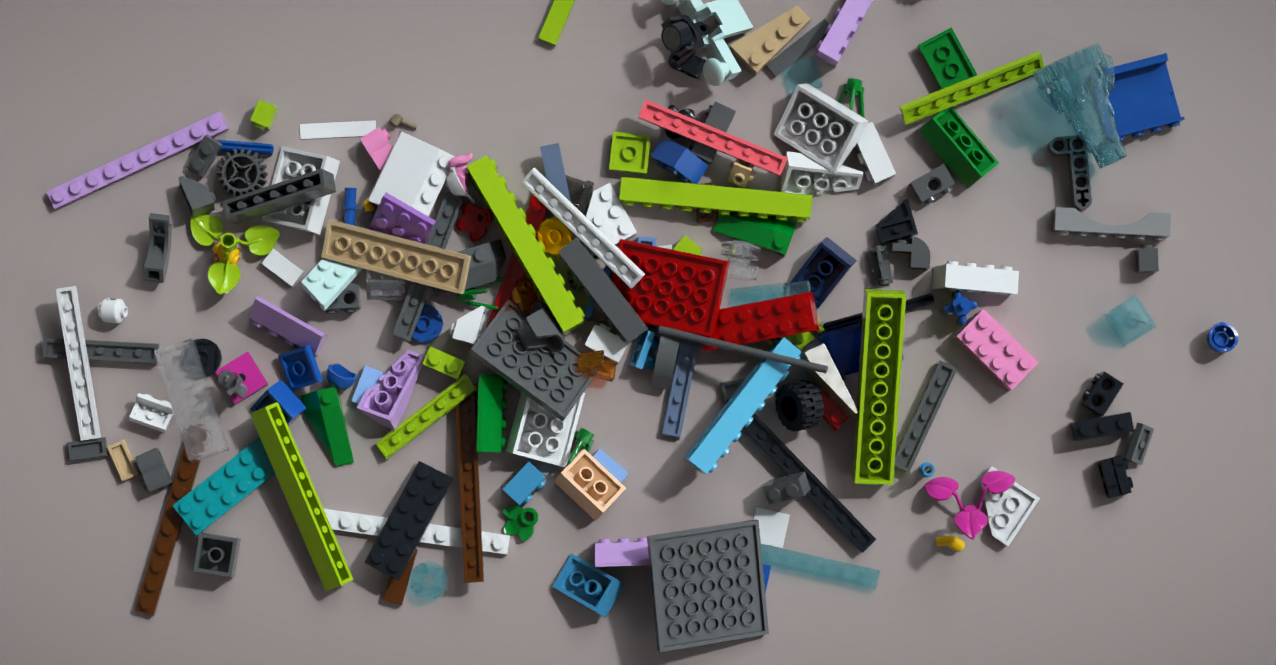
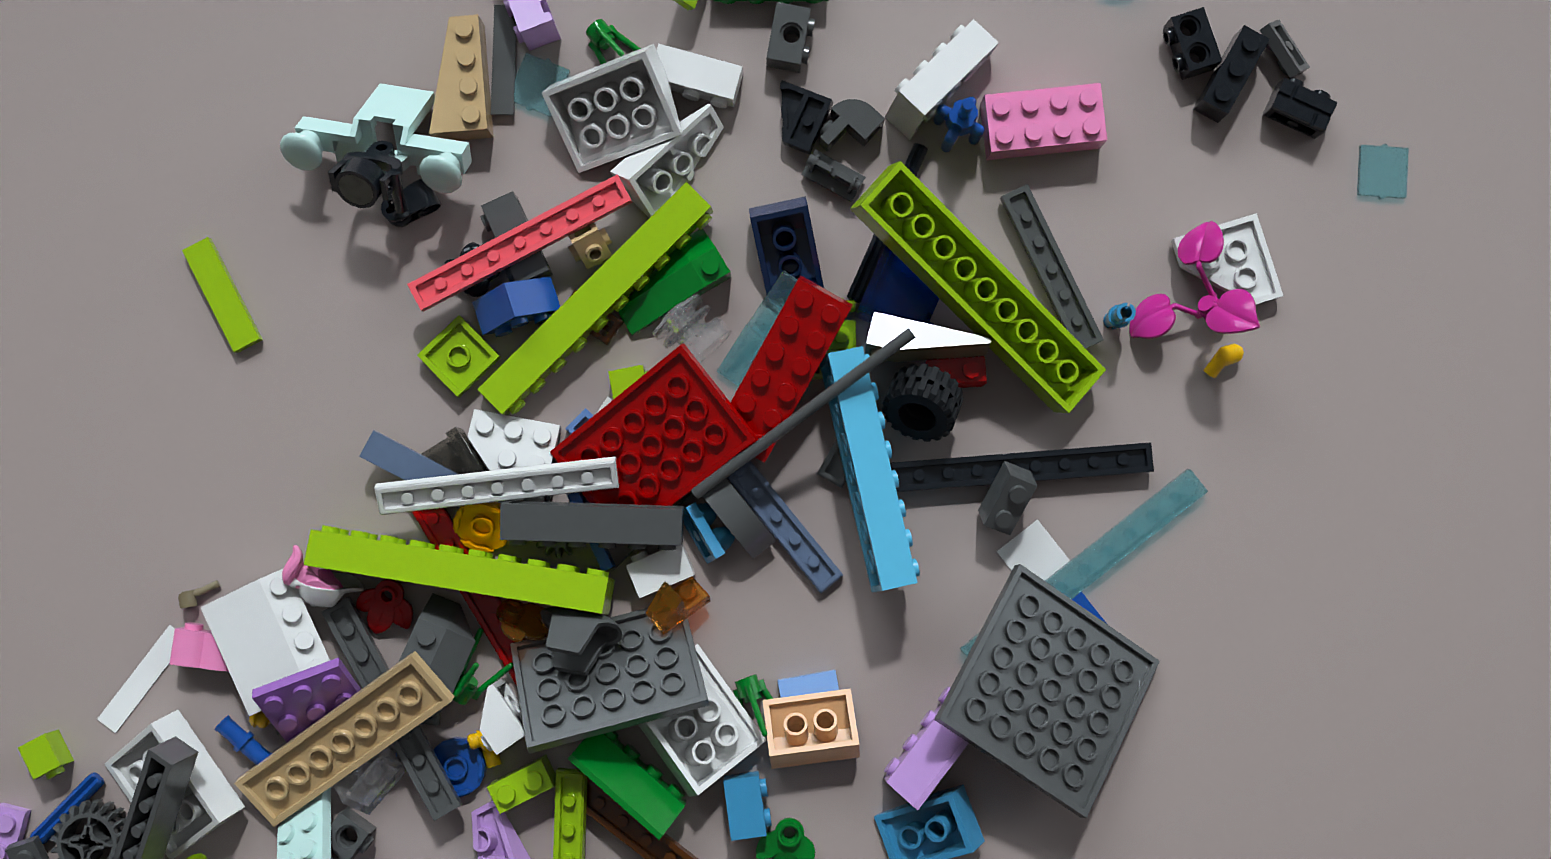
camera: 55 degrees left, 0 degrees up
(445, 333) = (490, 757): none -> yellow arm
(1118, 547) = (1382, 171): none -> clear light blue piece

